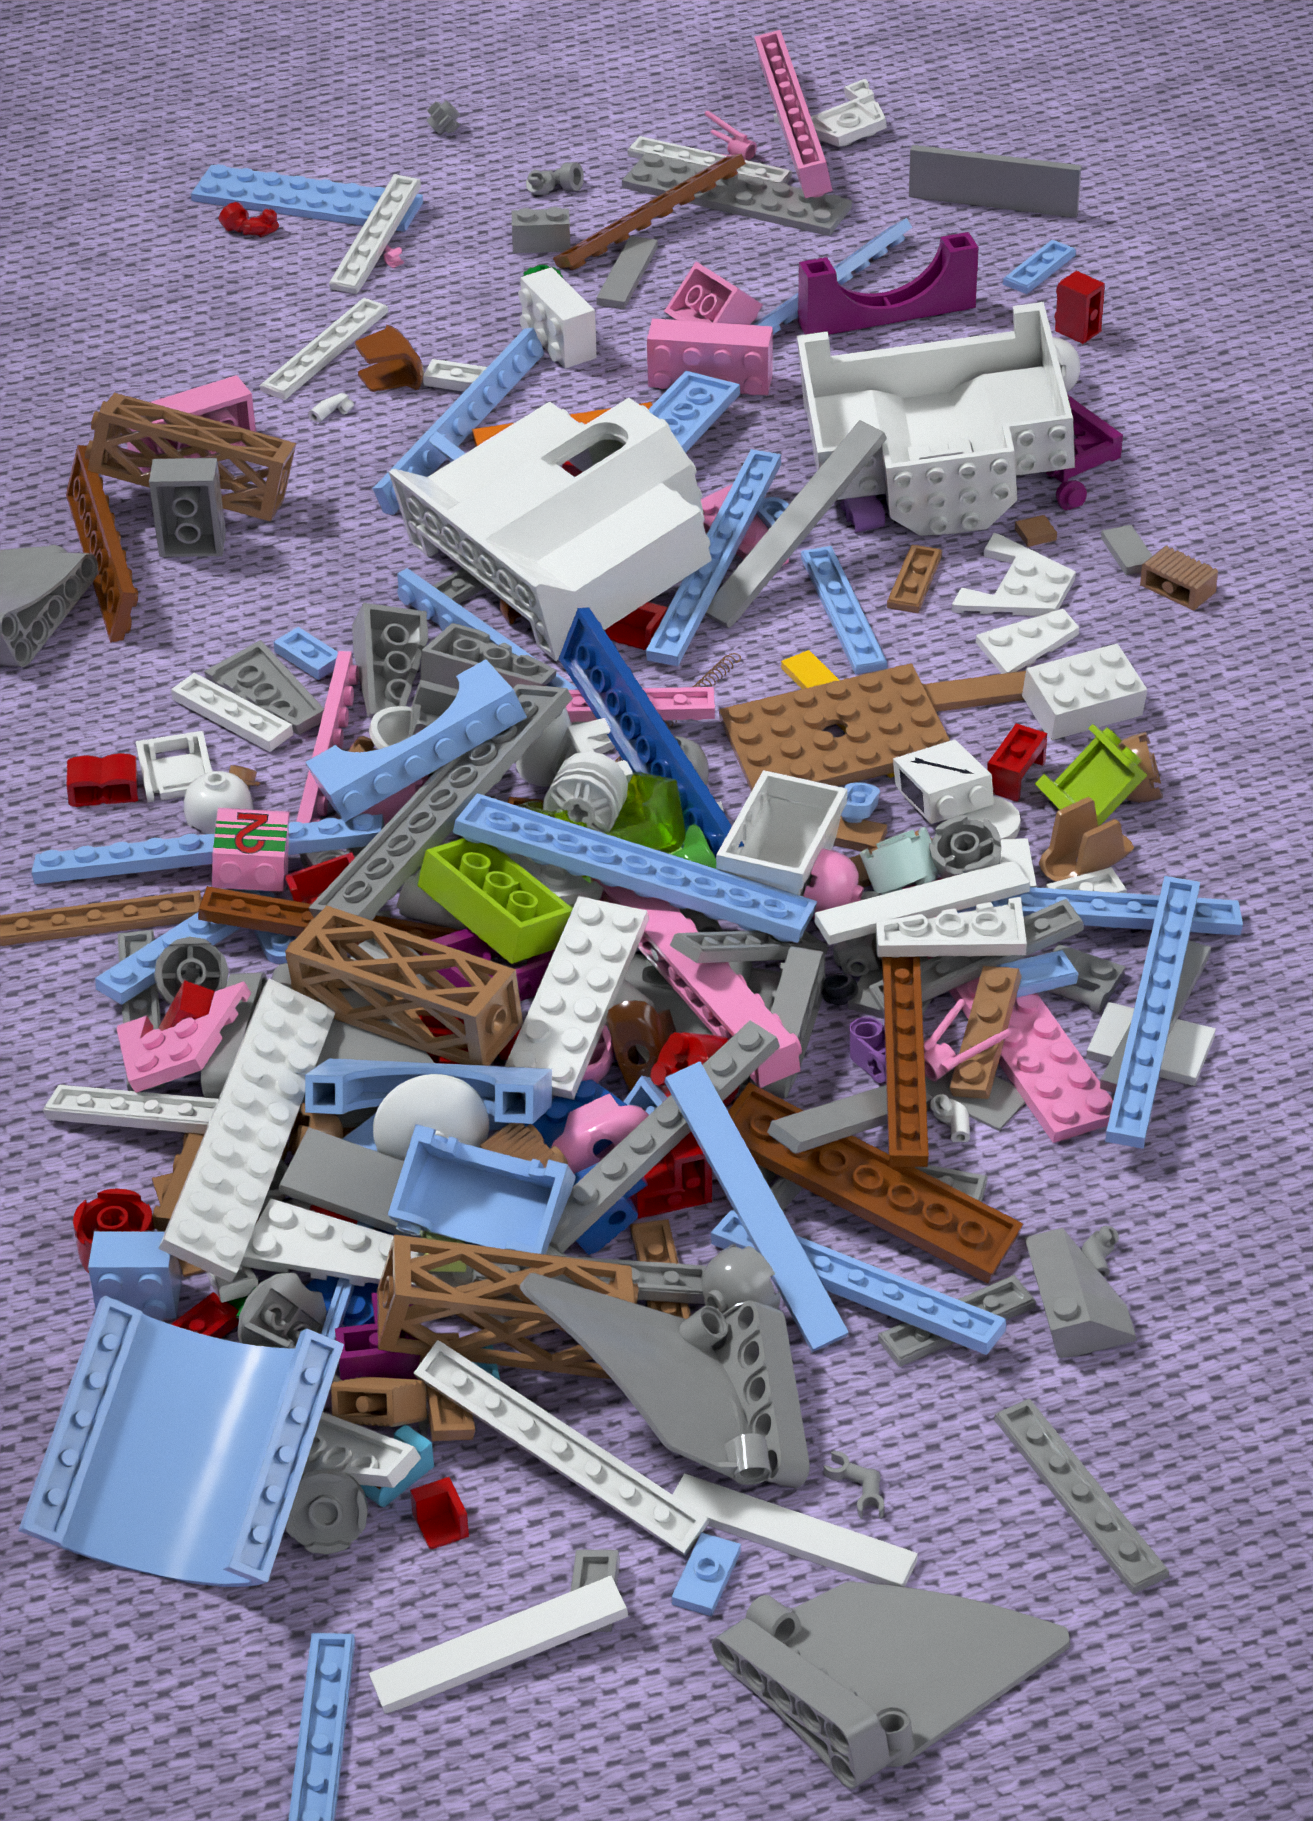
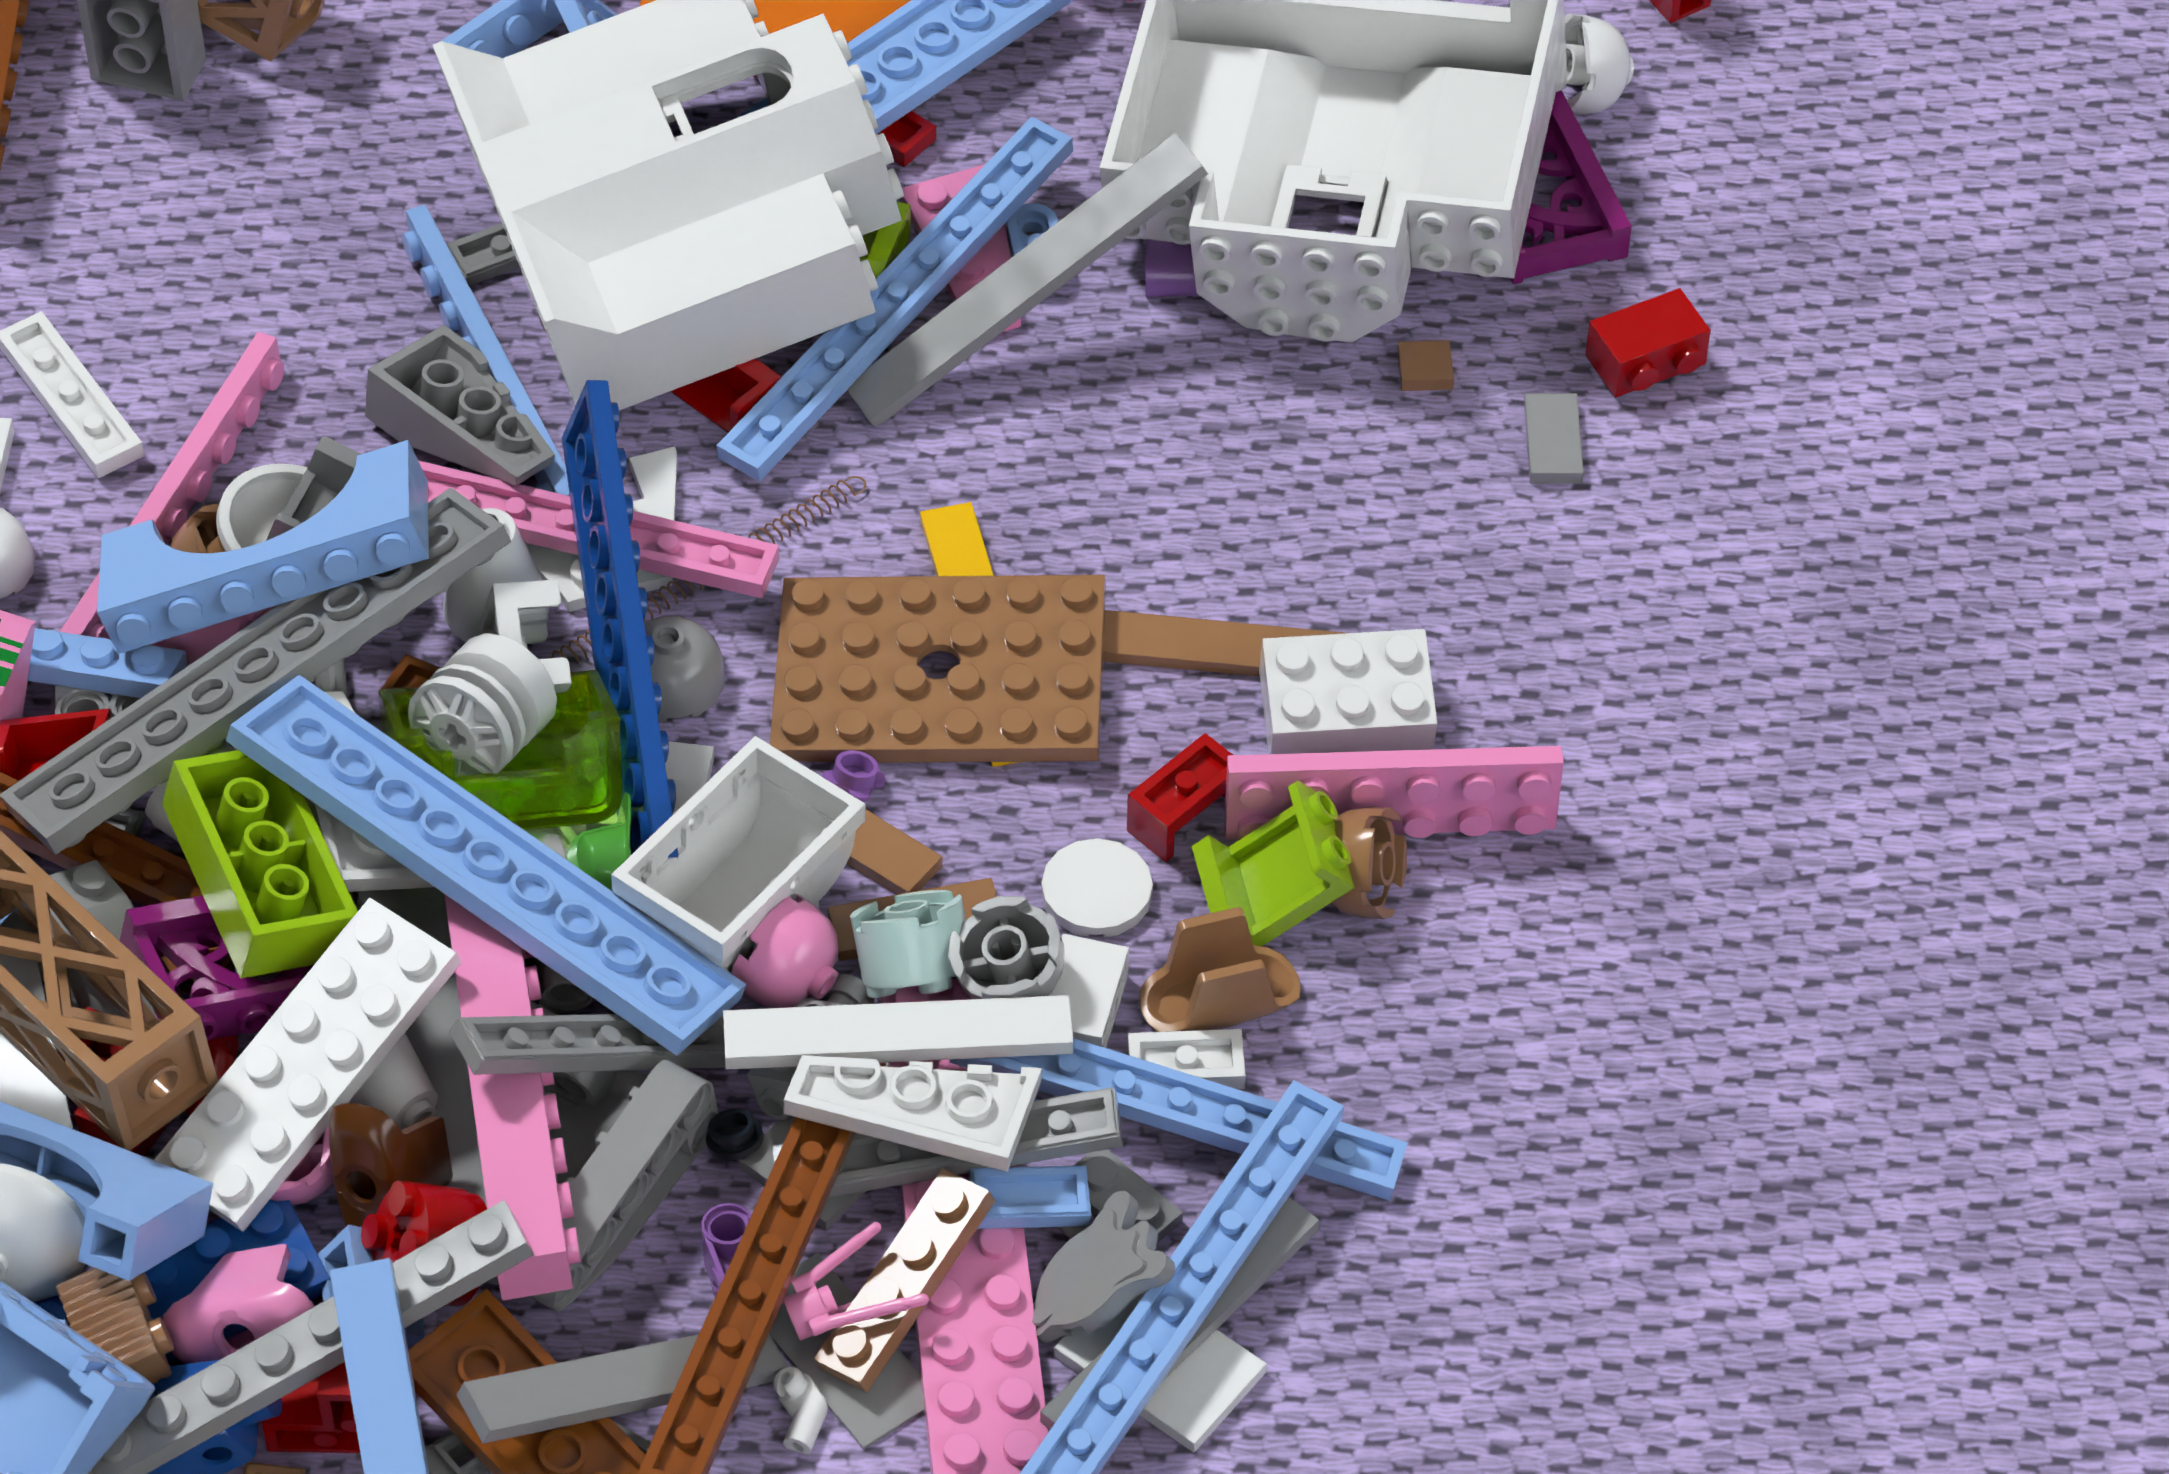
camera: 15 degrees right, 10 degrees up
(245, 774) = (35, 515): medium nougat plate -> none
(267, 683) = (141, 361): light grey wing -> none
(306, 652) = (222, 313): light blue plate -> none
(388, 653) = (338, 335): light grey wedge -> none
(843, 610) = (1061, 439): light blue tile -> none
(861, 801) = (911, 804): light blue plate -> none
(914, 578) = (1196, 408): medium nougat tile -> none
(943, 781) = (1055, 805): white brick -> none
(1025, 641) = (1307, 570): white wing -> none
(1029, 588) = (1367, 472): white wing -> none
(1071, 494) = (1507, 314): magenta plate -> none
(1100, 999) = (1100, 1272): none -> light grey tile
(1160, 489) = (1647, 343): none -> red brick
(1170, 719) = (1428, 788): none -> bright pink plate
(1179, 577) = (1603, 515): medium nougat brick -> none

